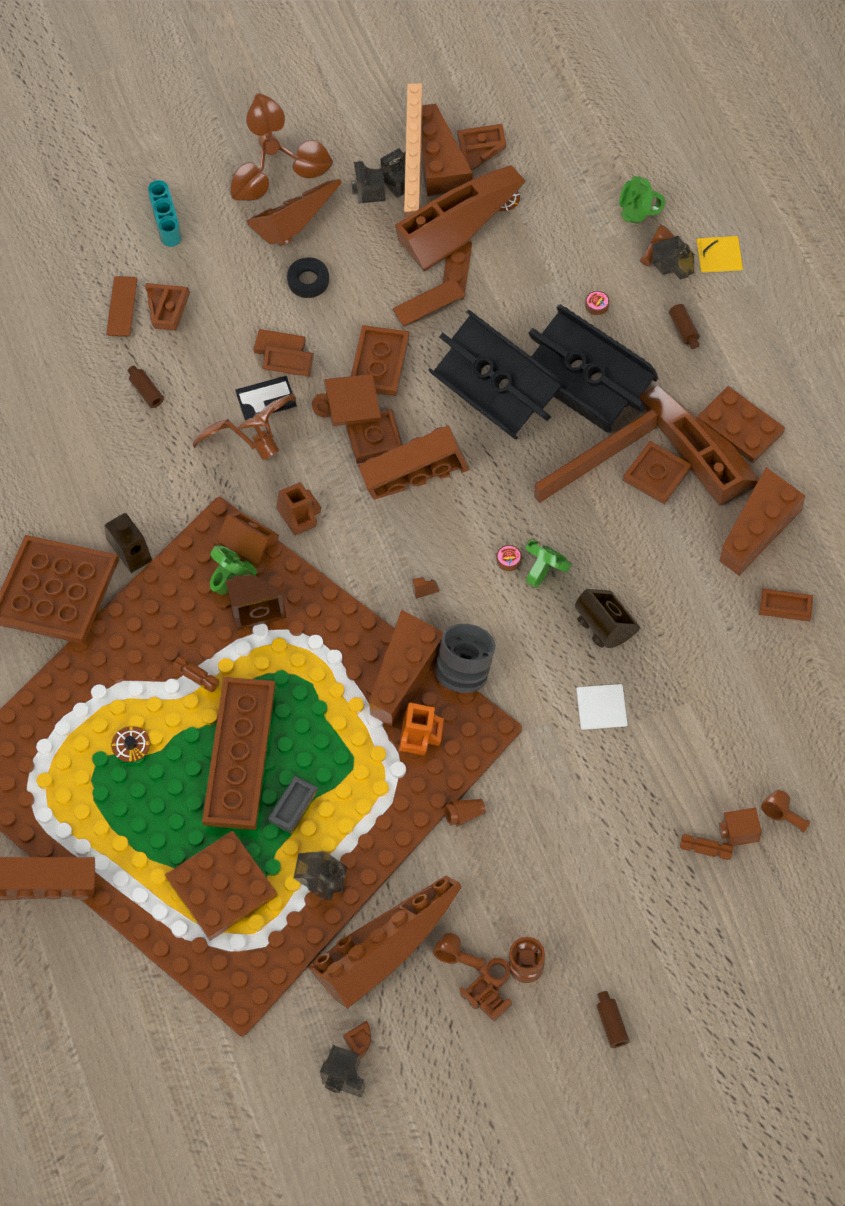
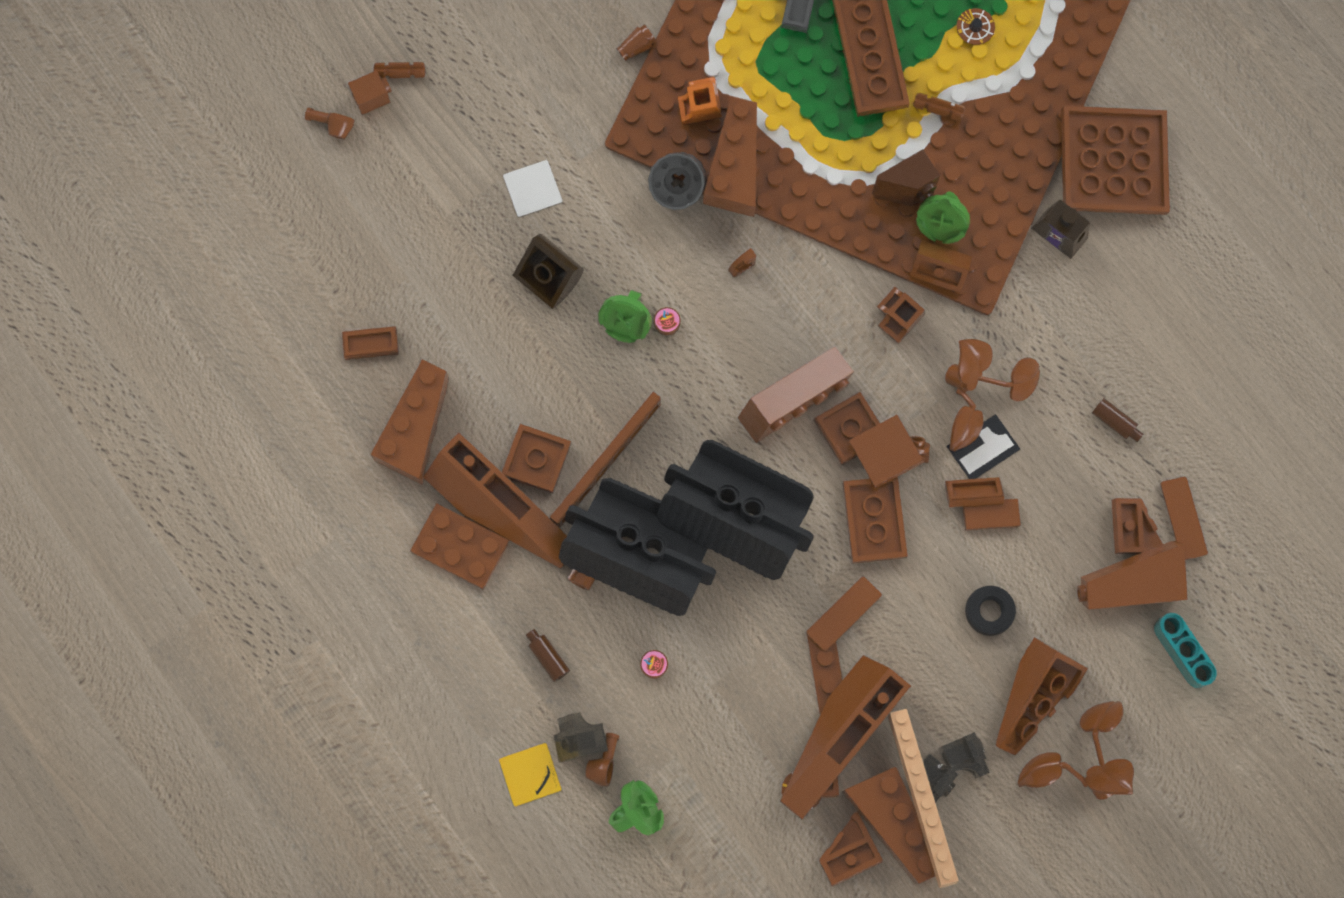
camera: 160 degrees right, 15 degrees up
(182, 264) = (1141, 579): none -> dark orange slope

